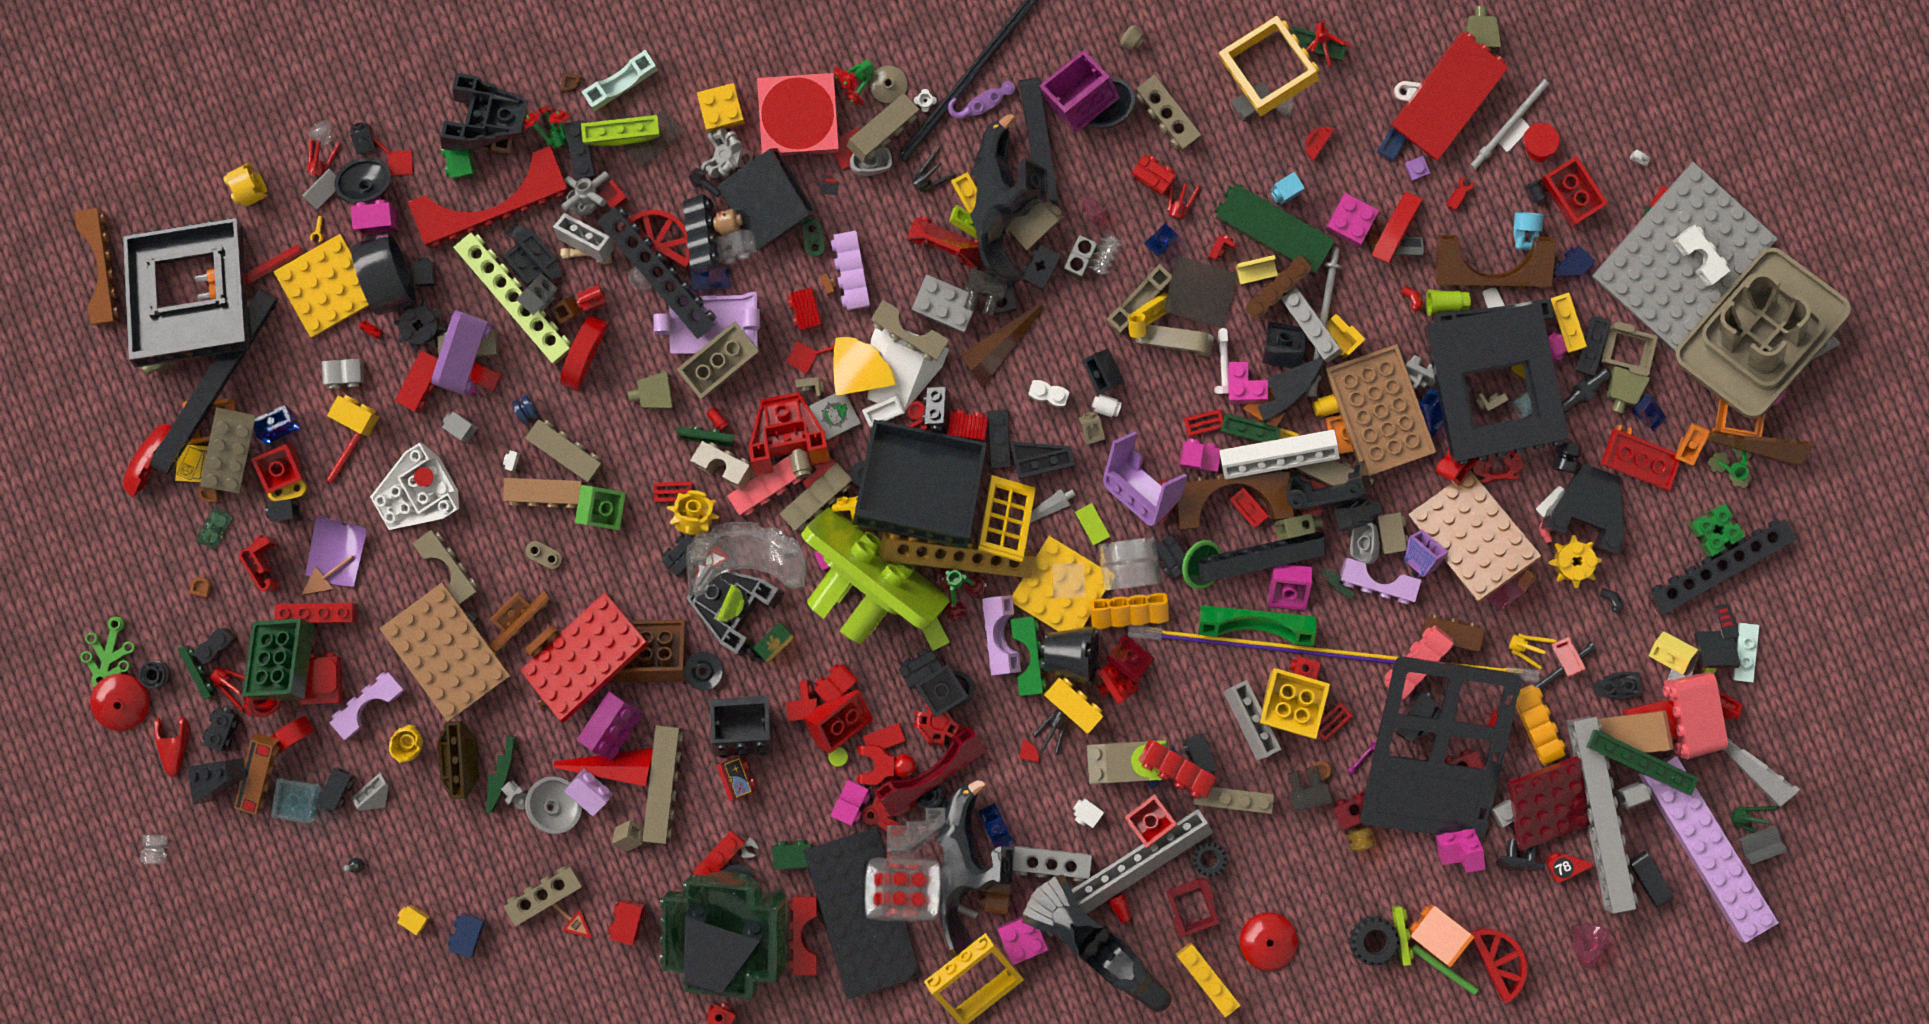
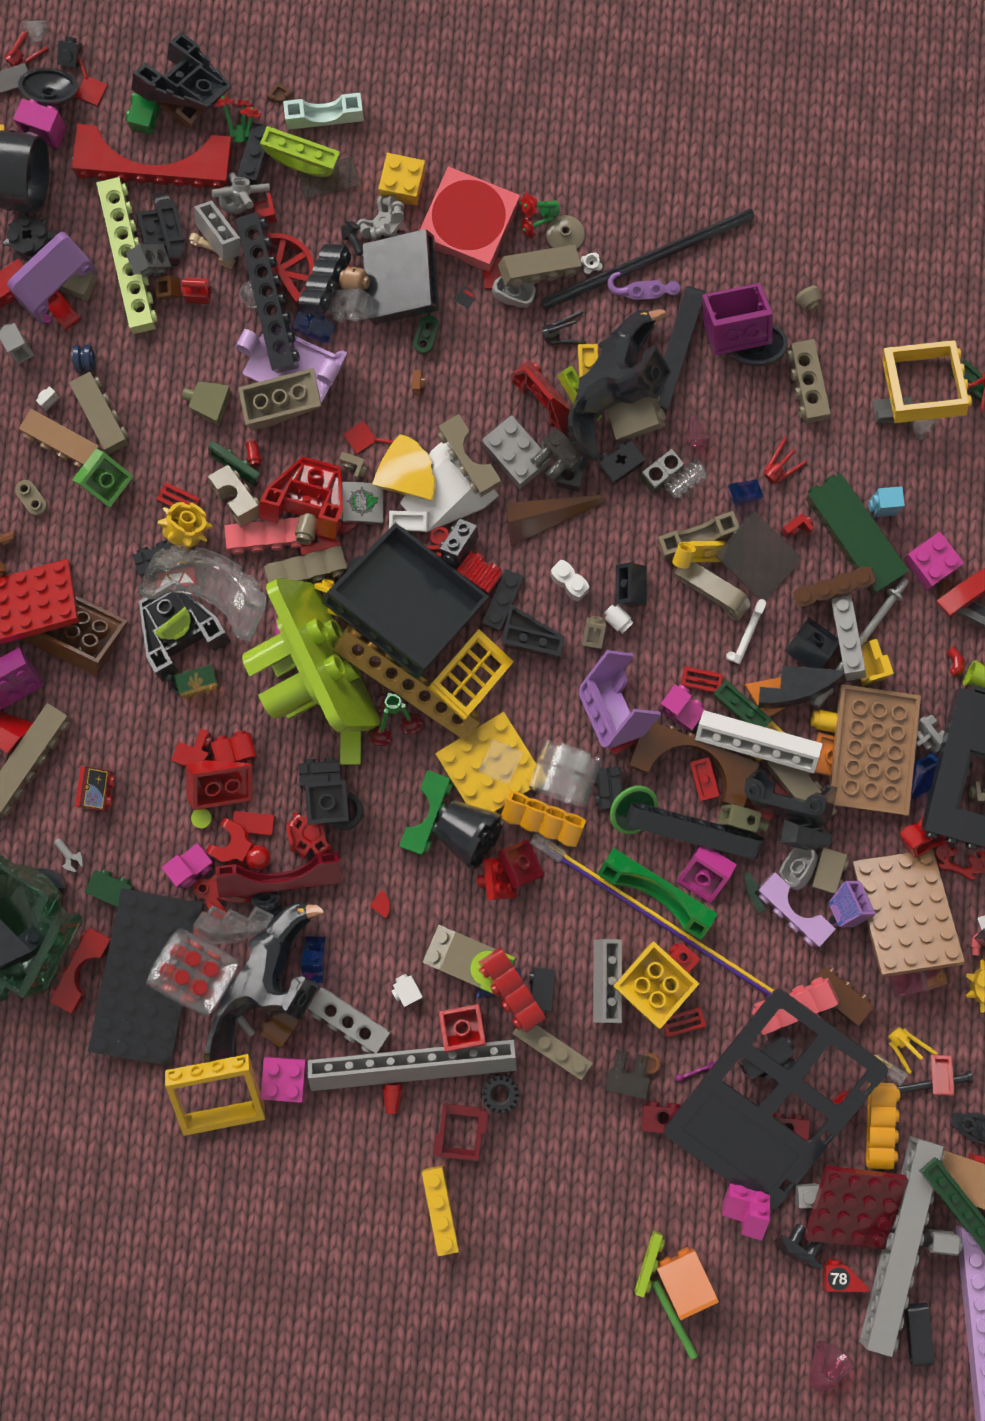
camera: 25 degrees right, 5 degrees down
(424, 272) = (59, 194): black brick -> none
(583, 352) = (162, 332): red window -> none
(712, 675) = (117, 664): black dish -> none
(720, 854) = (44, 853): red plate -> none
(741, 726) = (124, 742): black container -> none
(805, 309) = (385, 394): red brick -> none
(851, 271) = (445, 381): lavender brick -> none
(1001, 656) = (417, 759): lavender arch -> none
(1052, 504) = (525, 684): light grey bar -> none
(1057, 721) = (423, 889): black plant -> none
(1058, 912) = (351, 1125): black animal -> none
(1074, 704) = (445, 880): yellow brick -> none
(1092, 524) = (549, 721): lime tile -> none
(1154, 175) = (768, 430): red brick -> none
(1245, 391) = (753, 665): dark pink brick -> none
(1256, 270) = (821, 563): light yellow panel -> none
(1257, 933) = (521, 1188): red dish -> none
(1317, 140) = (936, 473): red plate -> none
(1361, 839) = (655, 1149): clear yellow wheel -> none
(1391, 941) = (625, 1273): black tyre -> none
(1495, 973) = (721, 1340): red window -> none

